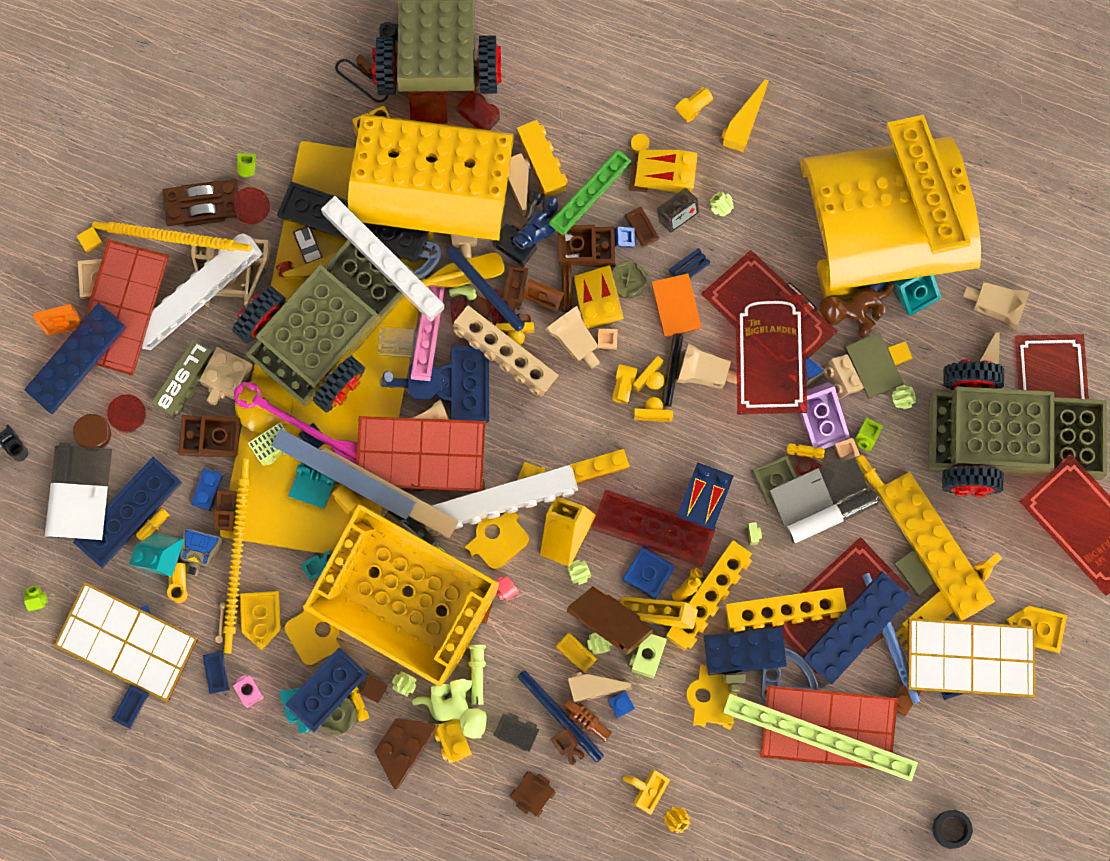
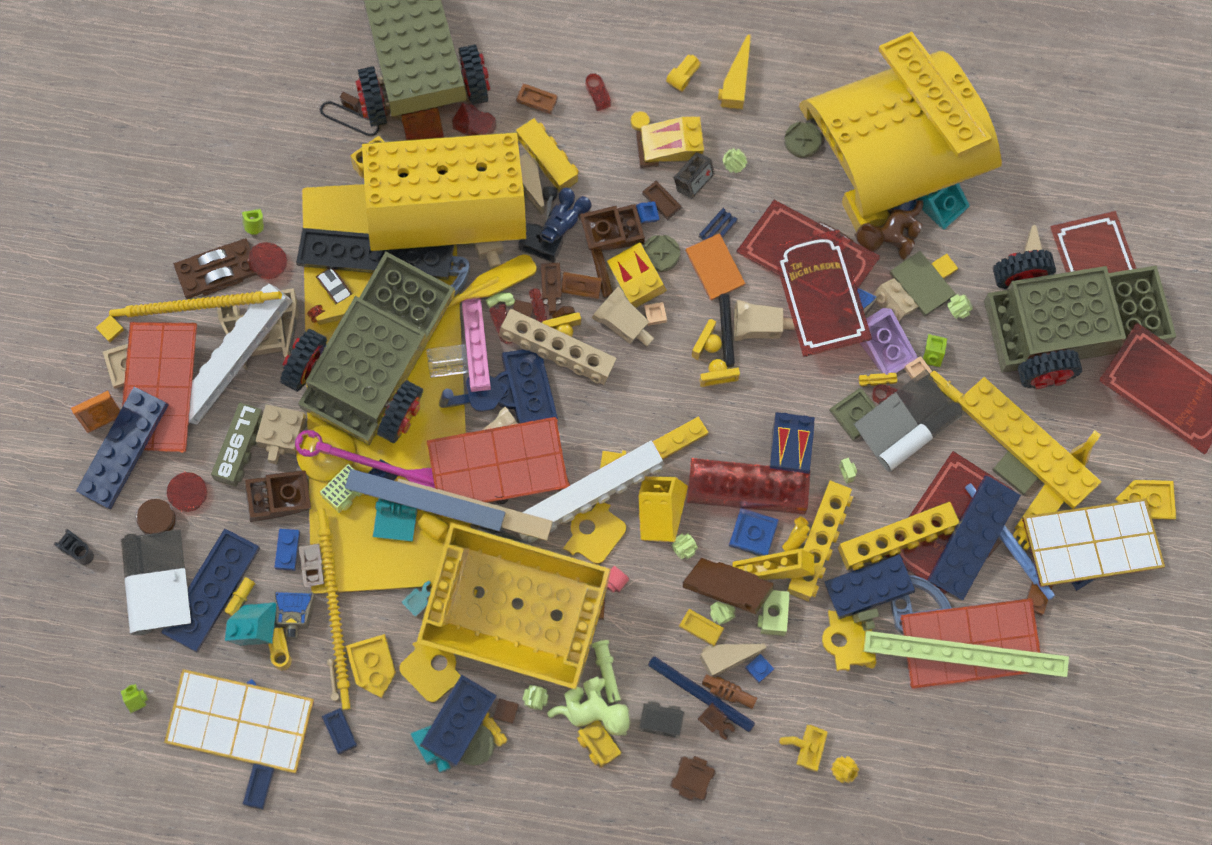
camera: 15 degrees left, 5 degrees down
(254, 697) = (381, 749): bright pink brick -> none
(382, 258) = (416, 278): white brick -> none
(388, 29) = (366, 61): black piece -> none
(403, 747) = (549, 761): reddish brown wing -> none
(485, 288) = (523, 289): dark blue axle -> none
(545, 99) = (537, 98): none -> dark orange plate
(590, 192) = (603, 176): bright green tile -> none
(606, 106) = (598, 93): none -> clear red piece
(624, 380) = (682, 347): yellow piece -> none
(794, 196) = (802, 139): none -> olive tile
(968, 830) = (1130, 704): black tyre -> none
(999, 302) = (1027, 197): tan piece -> none

